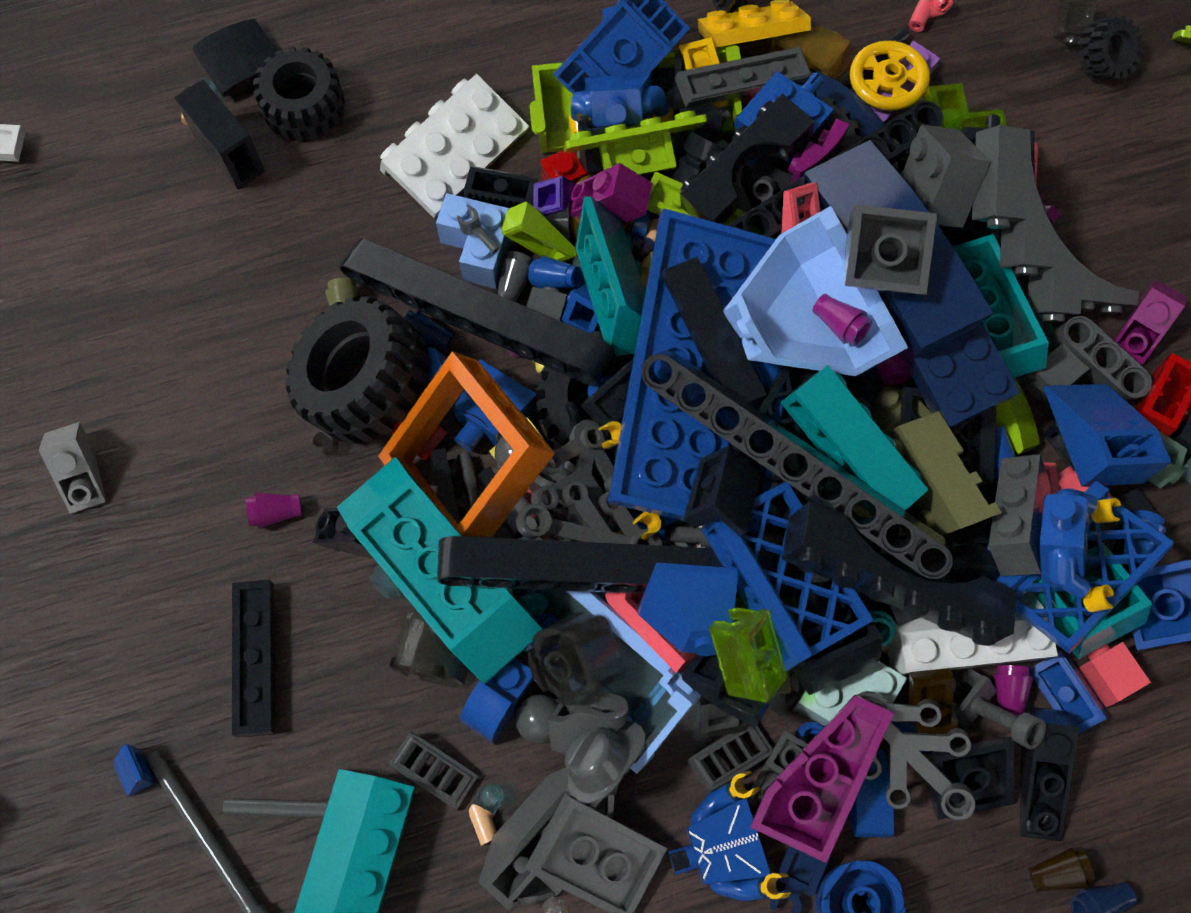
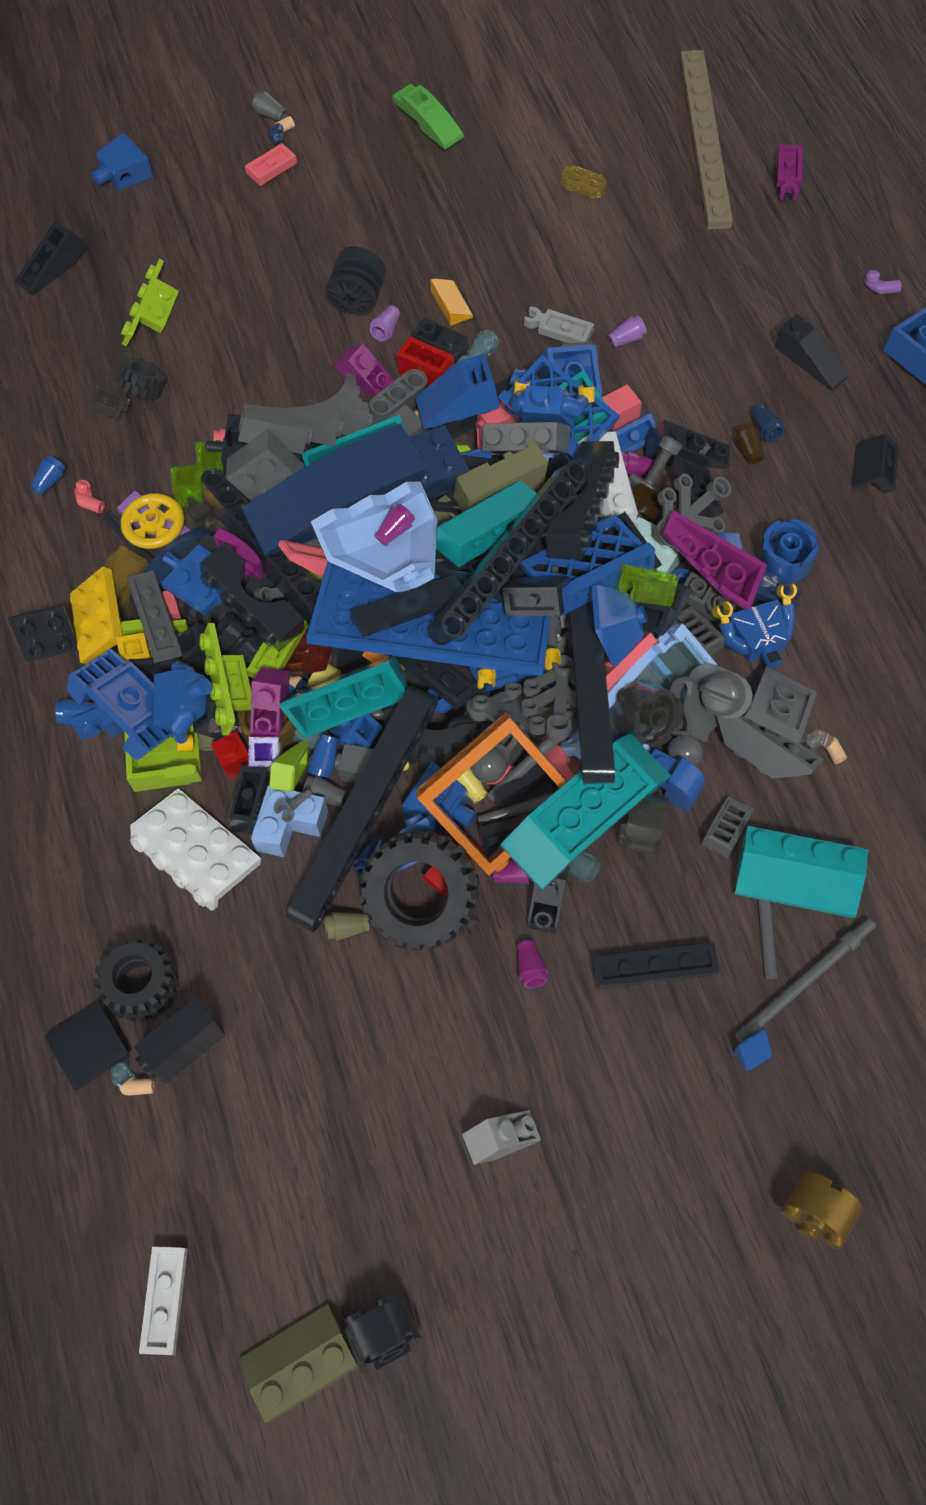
camera: 90 degrees left, 5 degrees down
(484, 809) = (754, 791): arm -> none
(889, 249) = (358, 476): dark grey slope -> none

